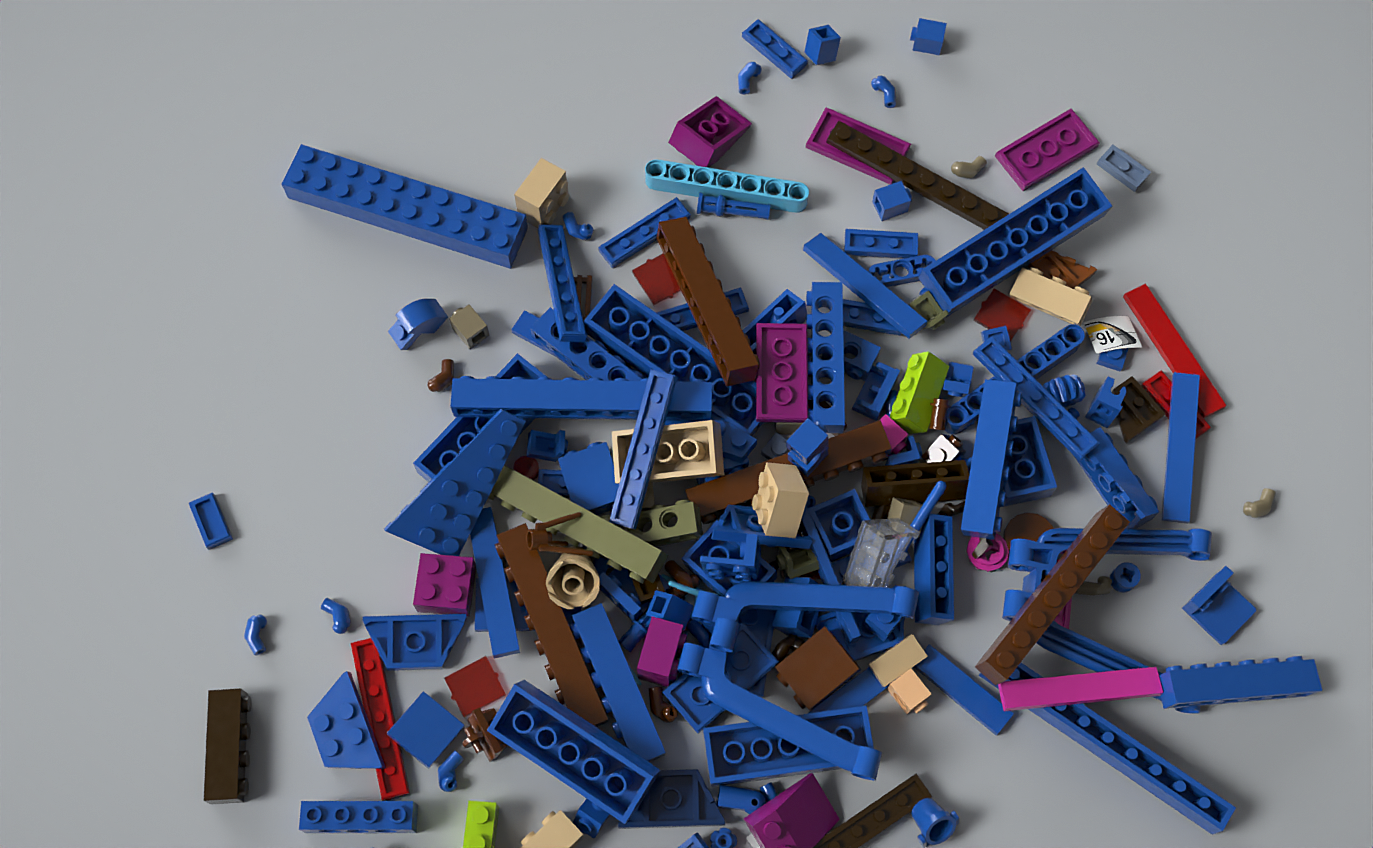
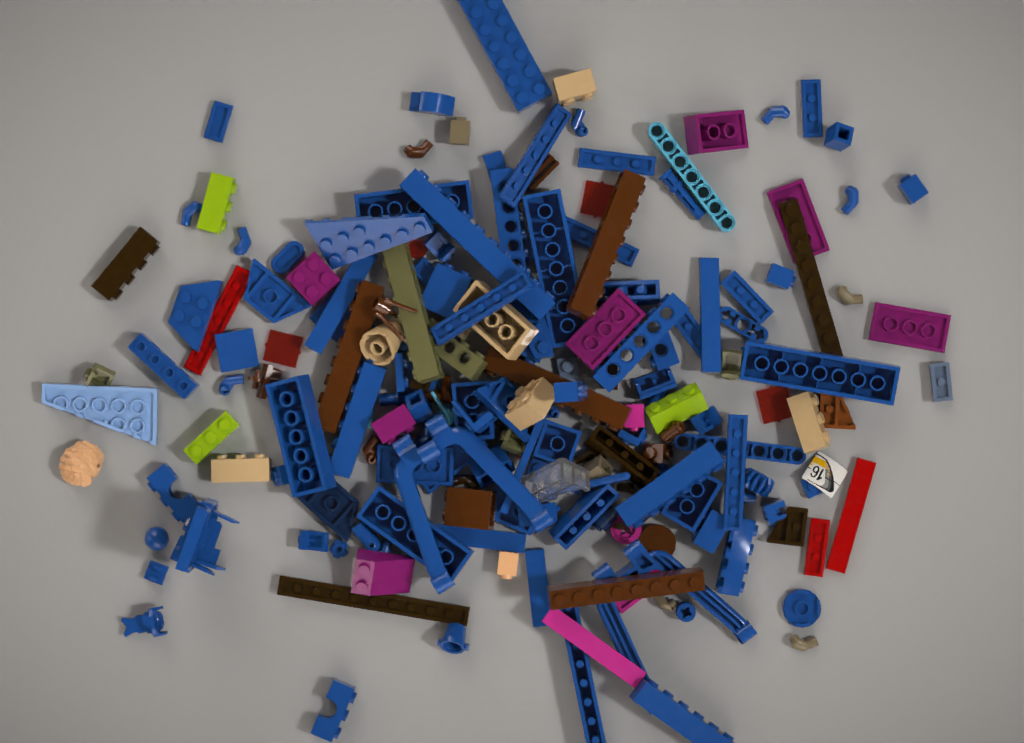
camera: 40 degrees right, 20 degrees up
(276, 599) = (217, 203): none -> lime brick
(399, 590) = (287, 257): none -> blue tile
(897, 660) = (516, 542): tan tile -> none
(961, 558) = (606, 519): none -> dark blue brick
(1000, 335) = (755, 417): blue plate -> none
(1071, 477) = (710, 532): none -> blue brick
(1180, 448) = (792, 572): blue tile -> none
(1219, 607) = (719, 674): blue bracket -> none
(1223, 474) = (801, 608): none -> blue tile

